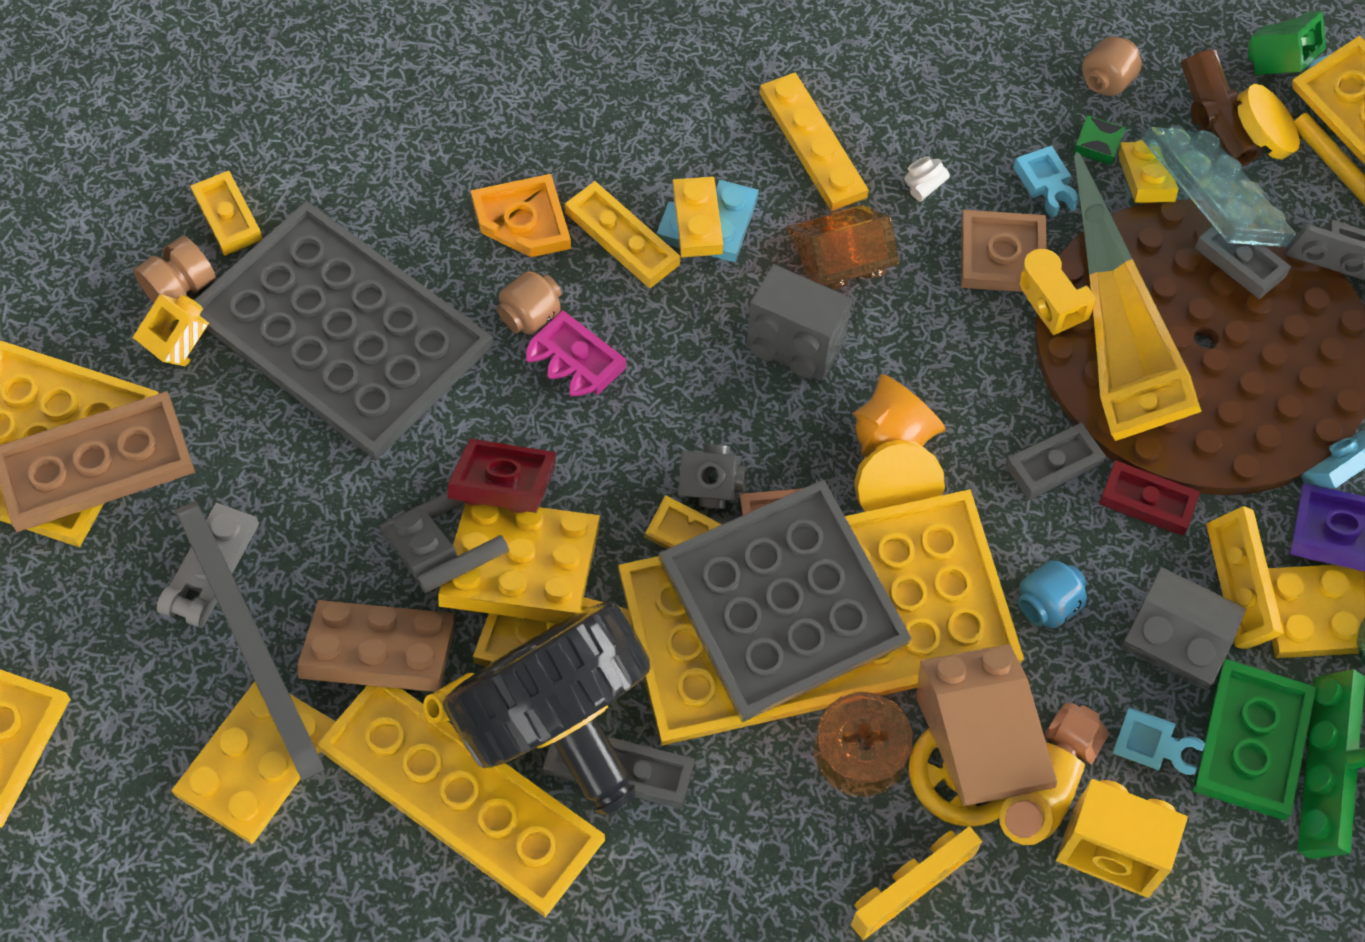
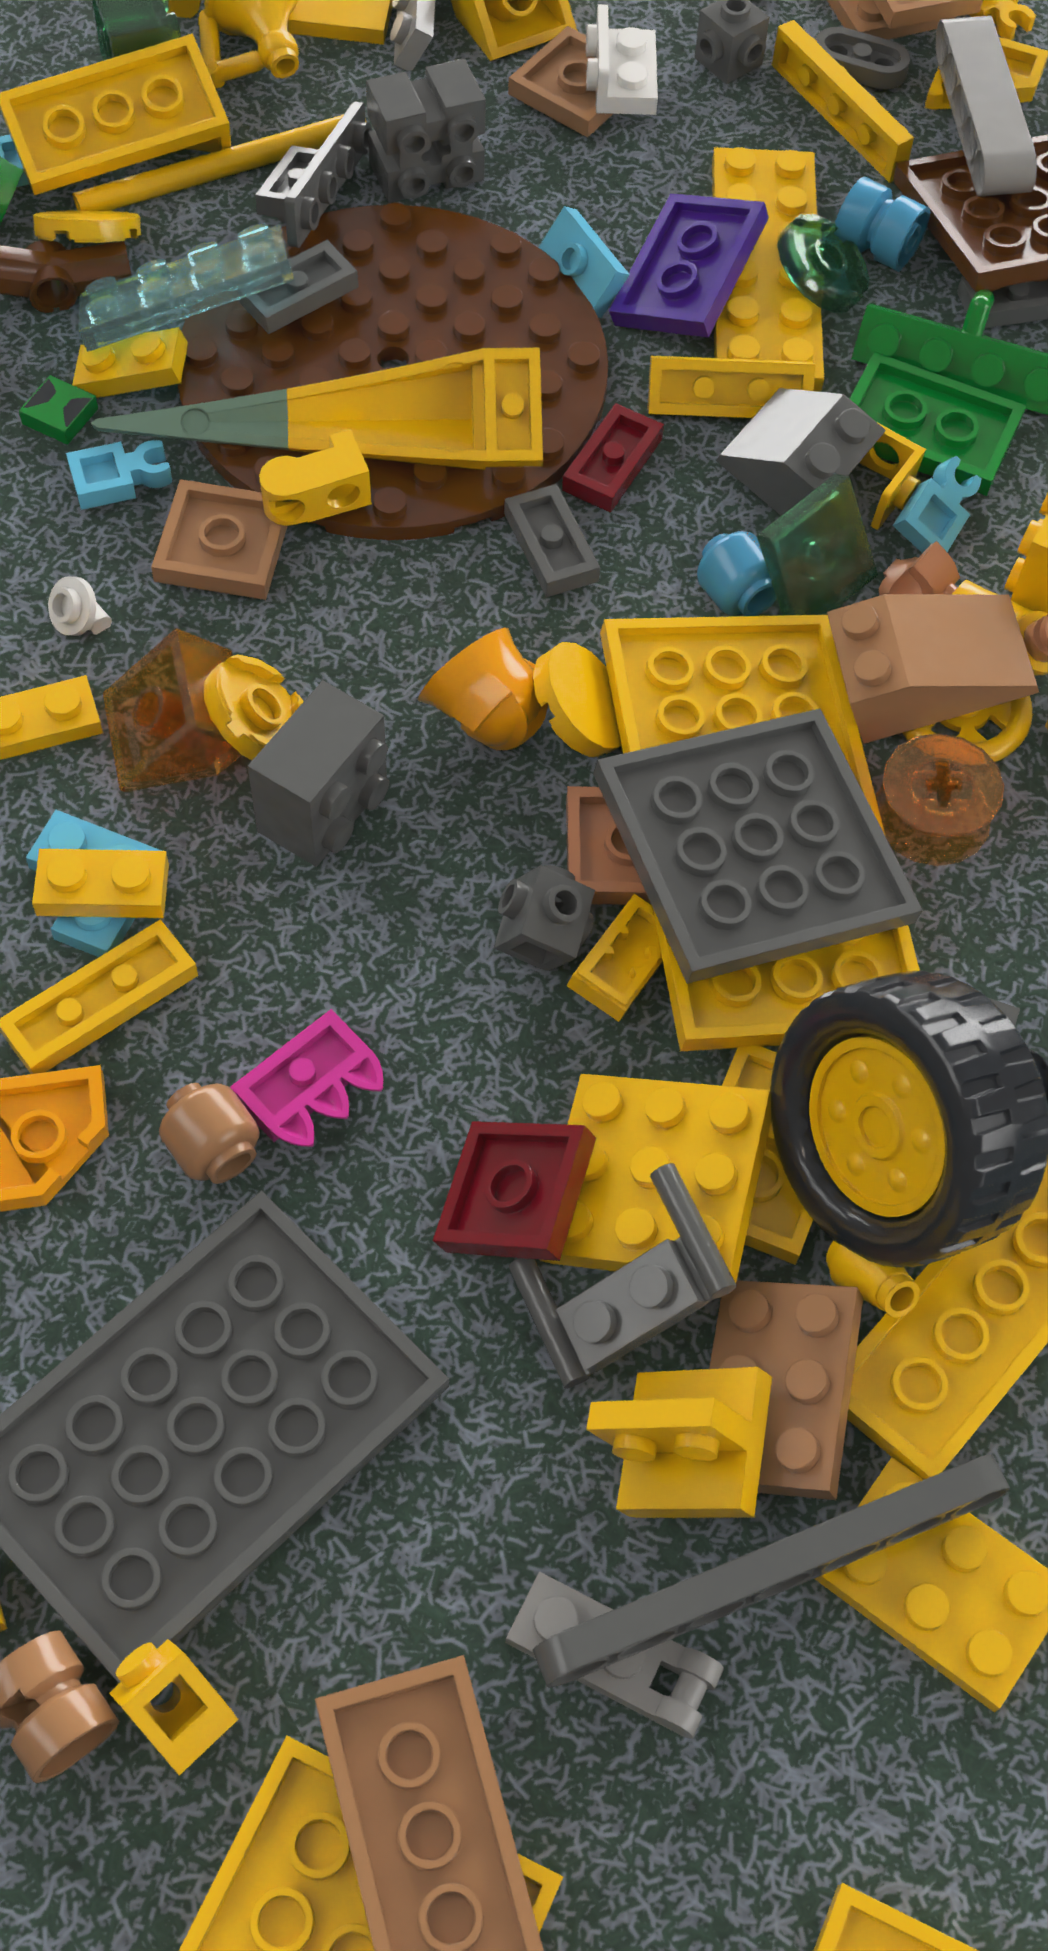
camera: 85 degrees left, 0 degrees up
(332, 586) = (688, 1442): none -> yellow bracket
(857, 274) = (248, 702): none -> yellow tile
(1072, 640) = (818, 551): none -> clear green tile
(1178, 712) = (902, 474): none -> yellow bracket

